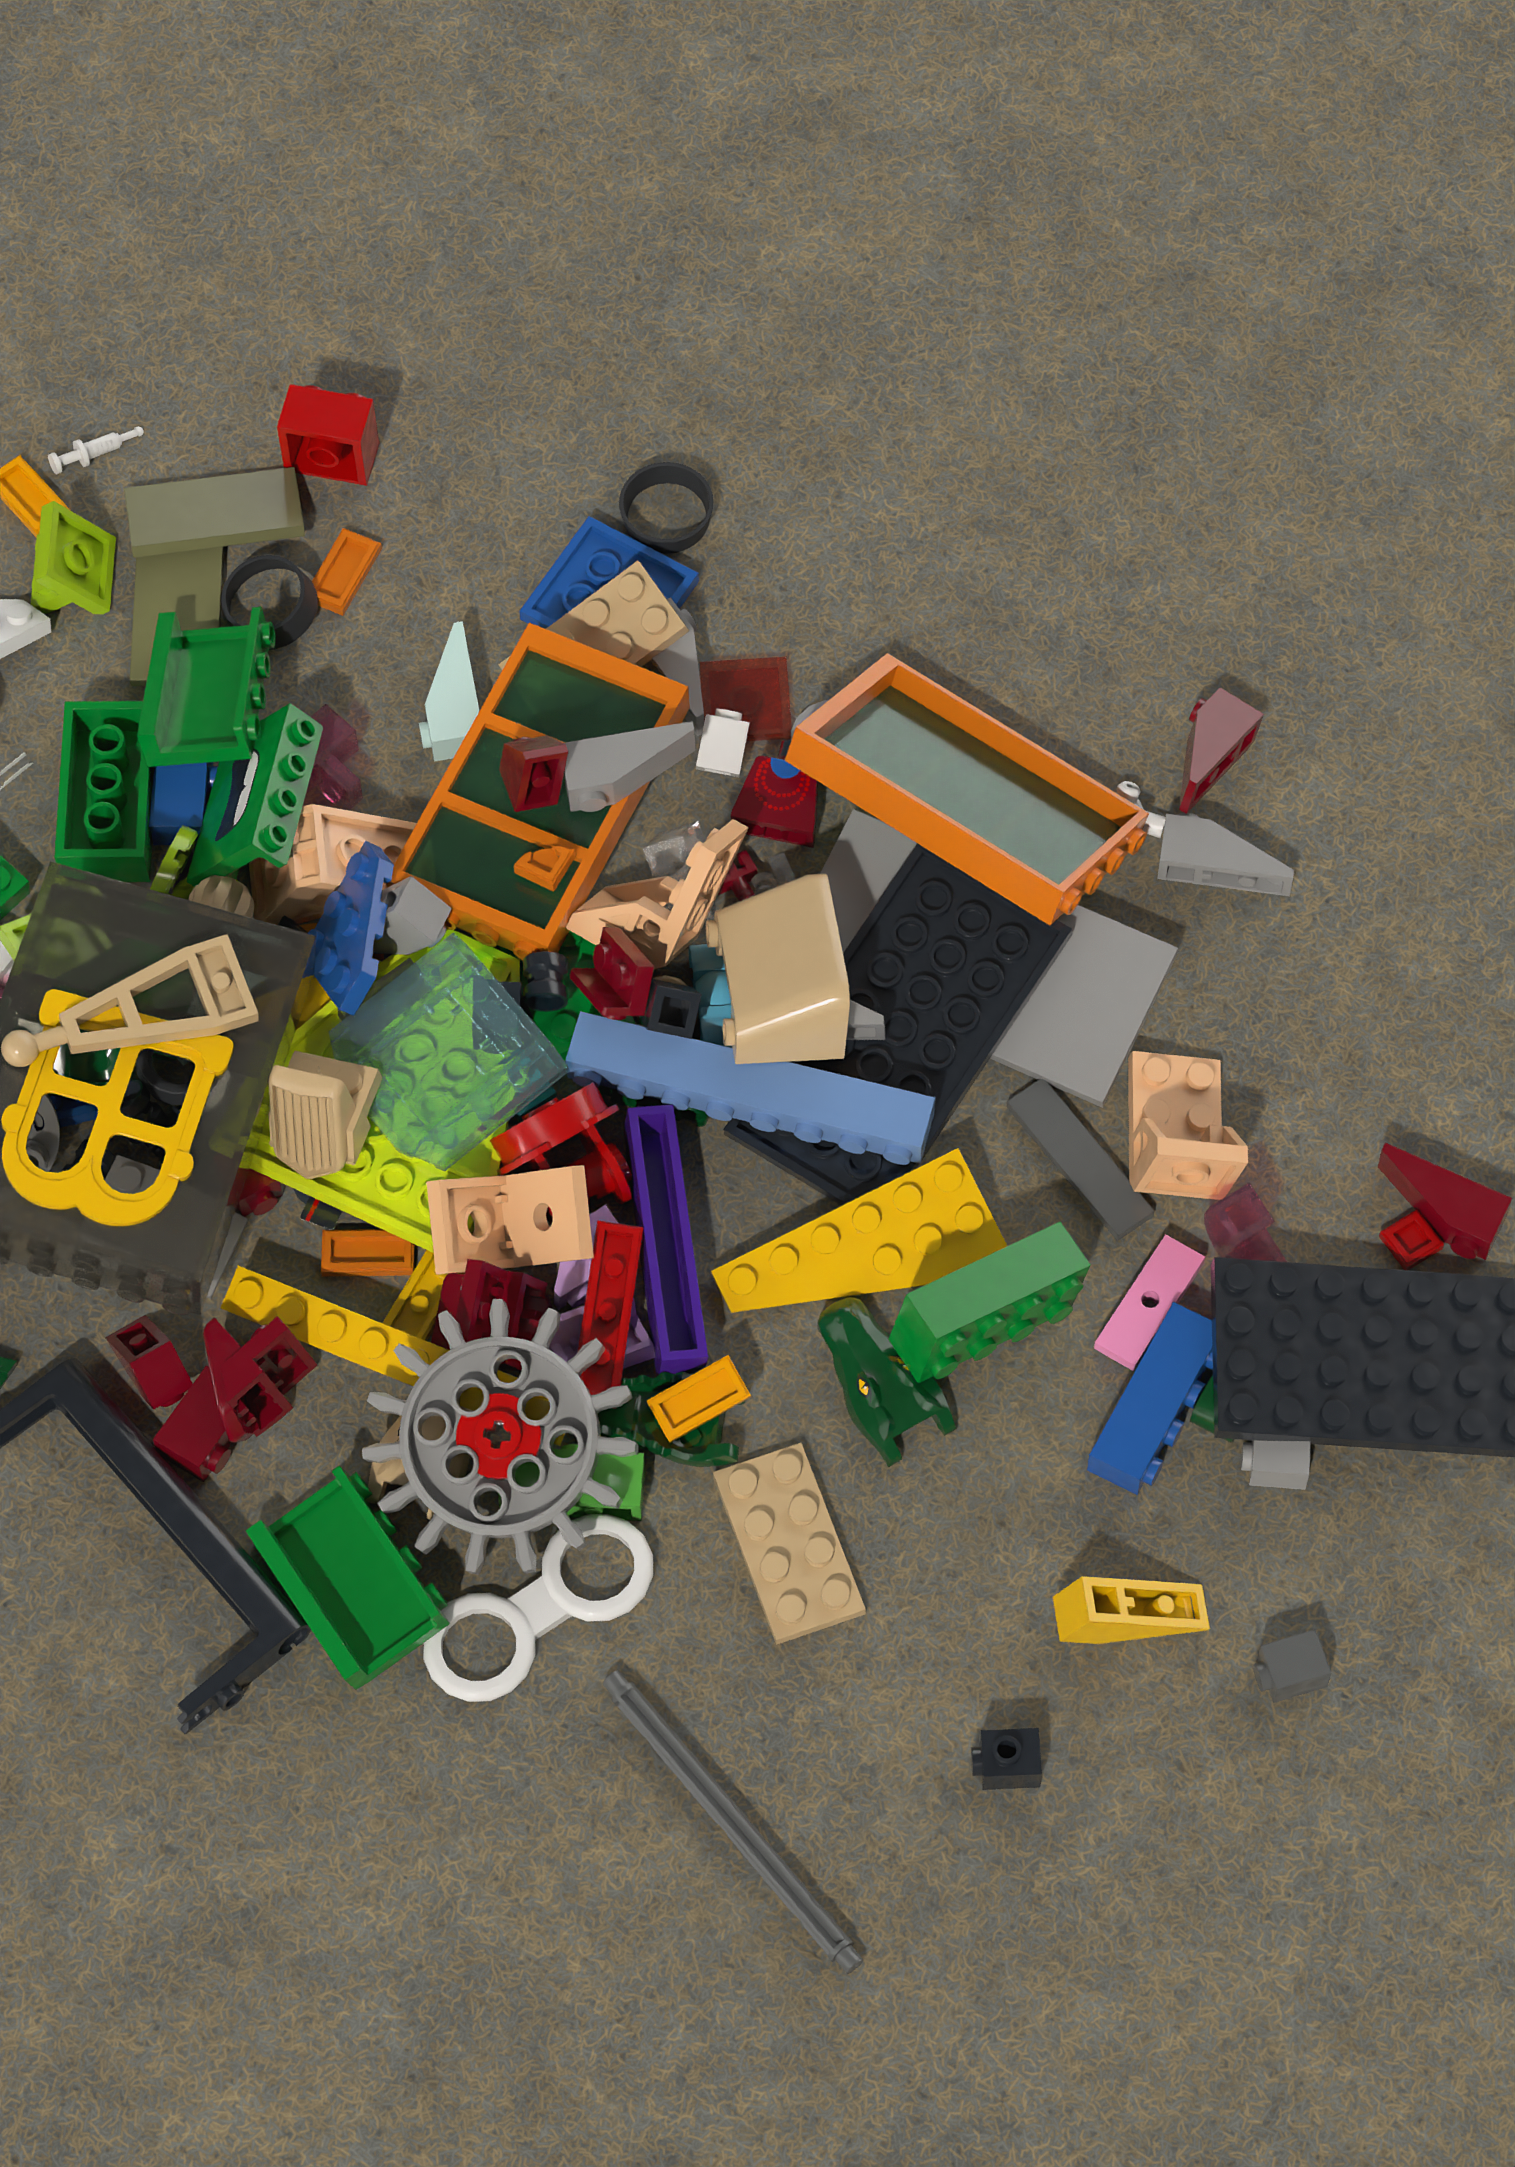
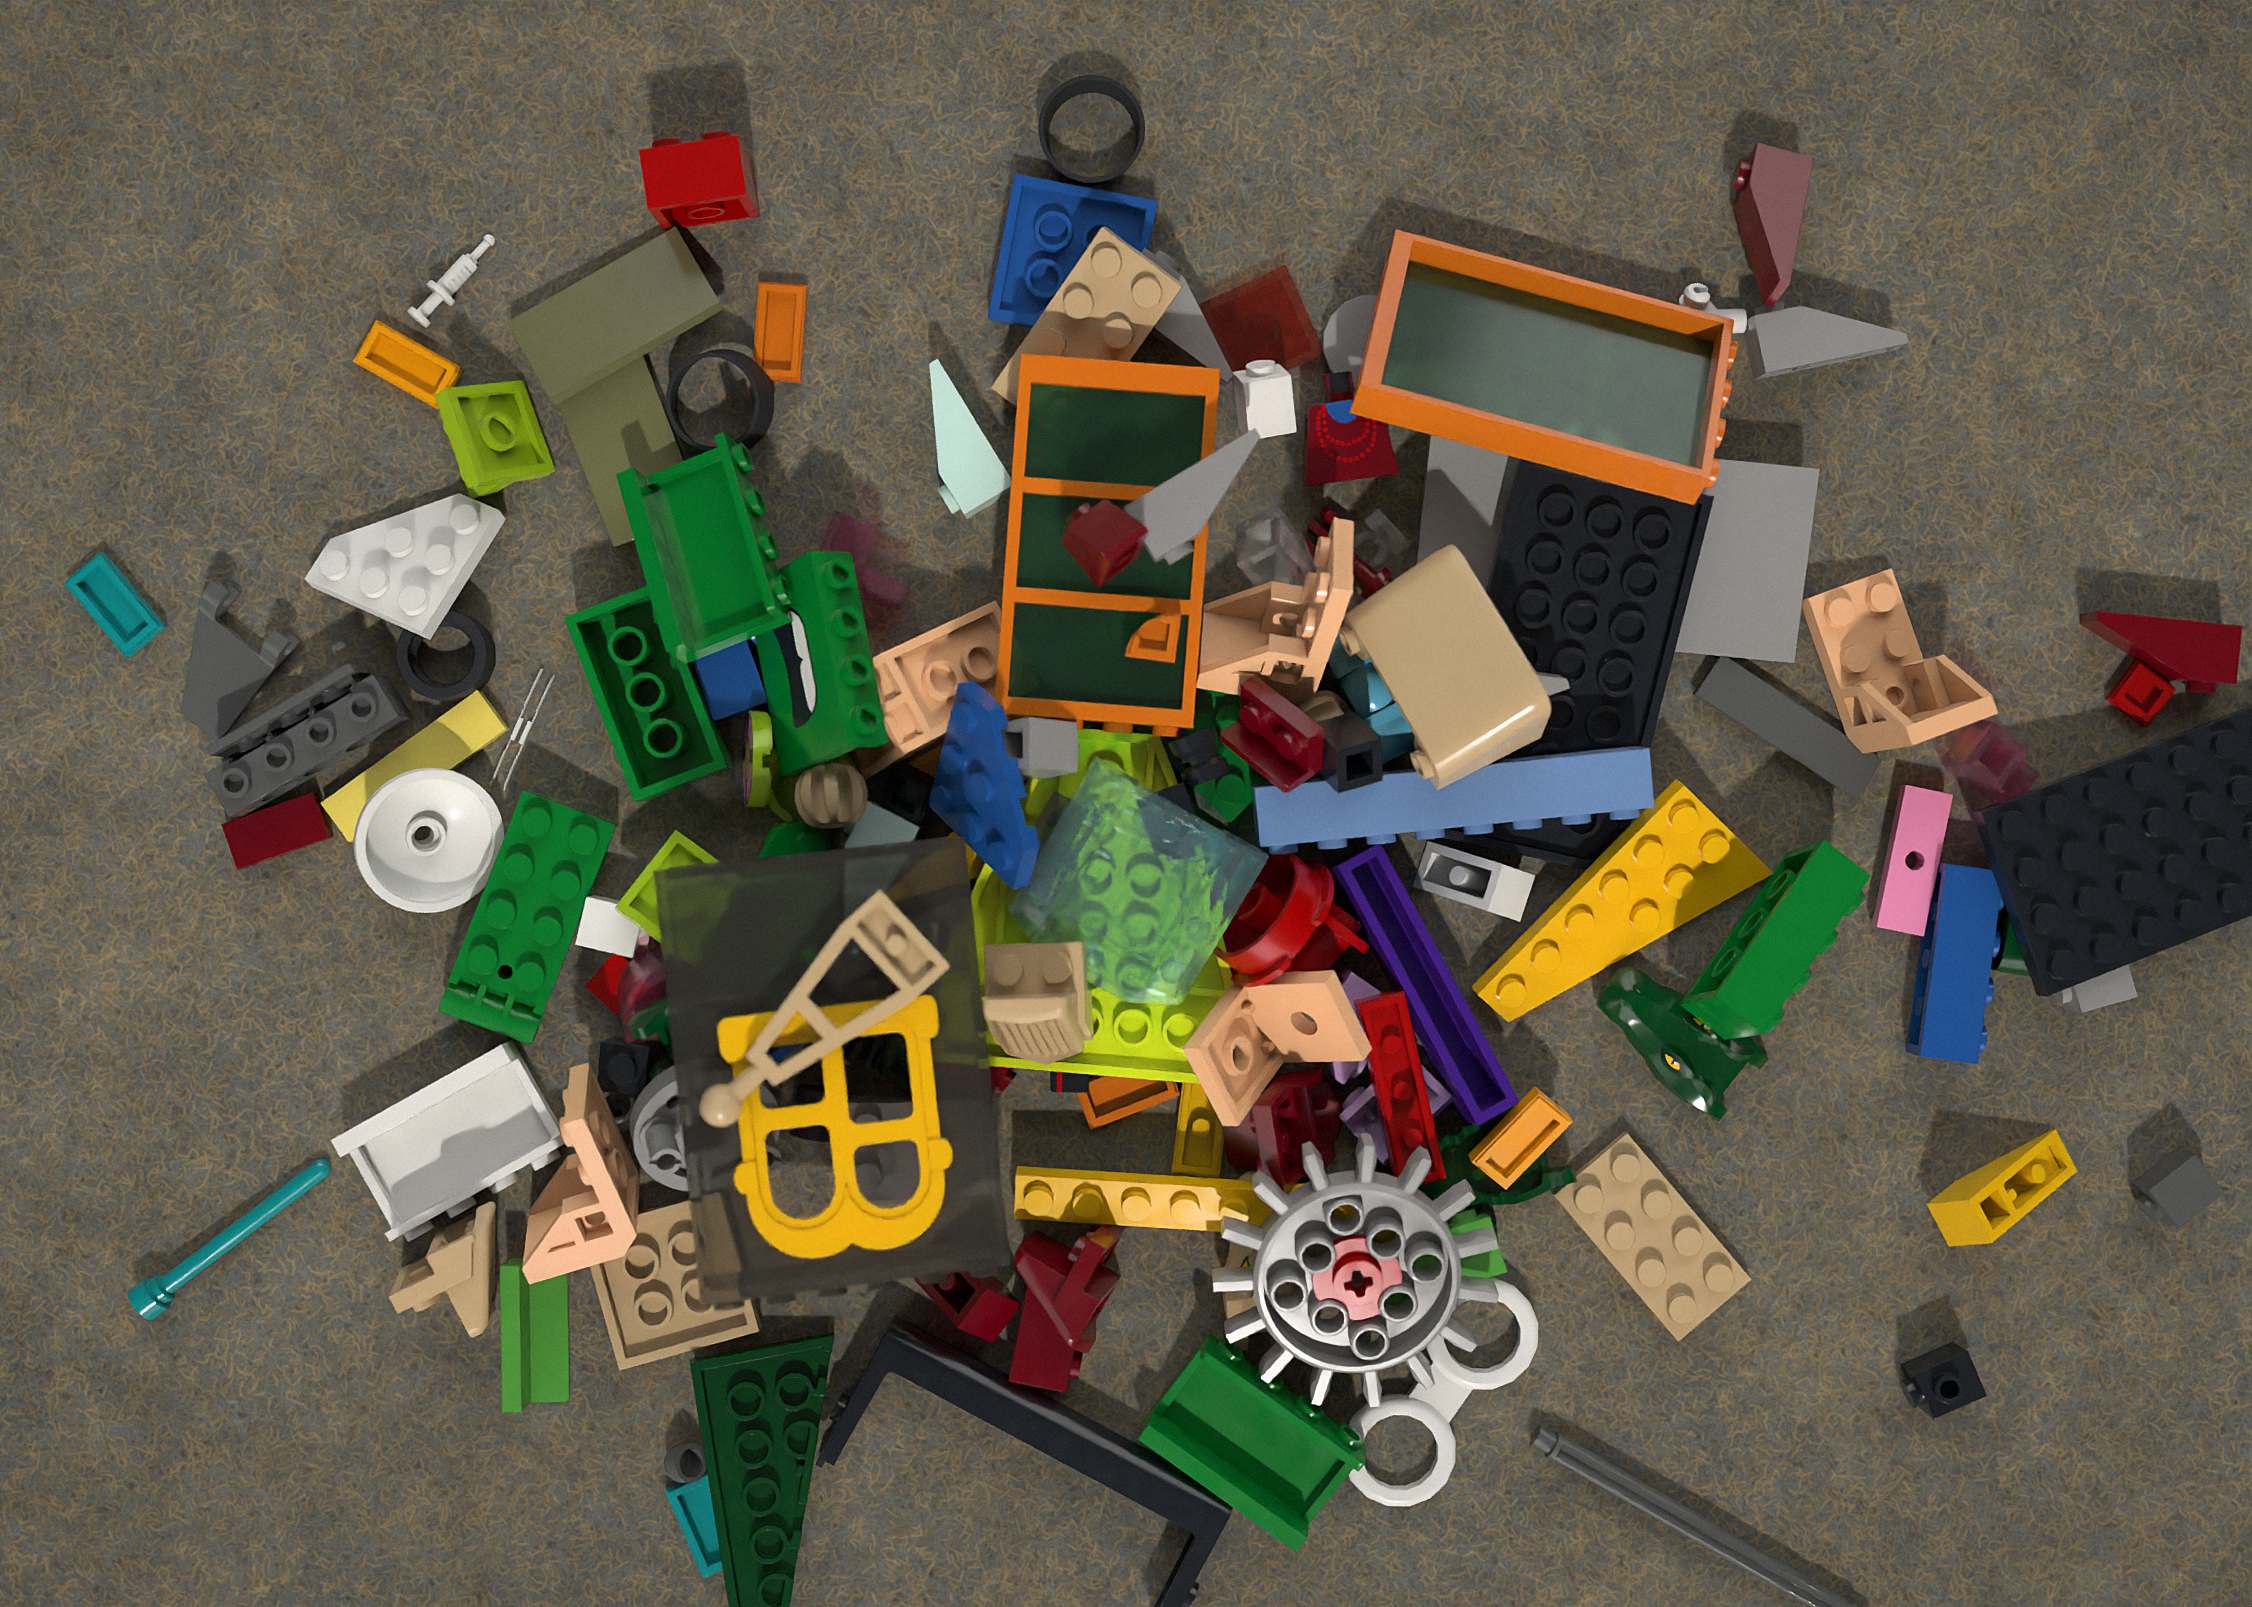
camera: 20 degrees left, 25 degrees up
(750, 1183) = (1474, 880): none -> white slope

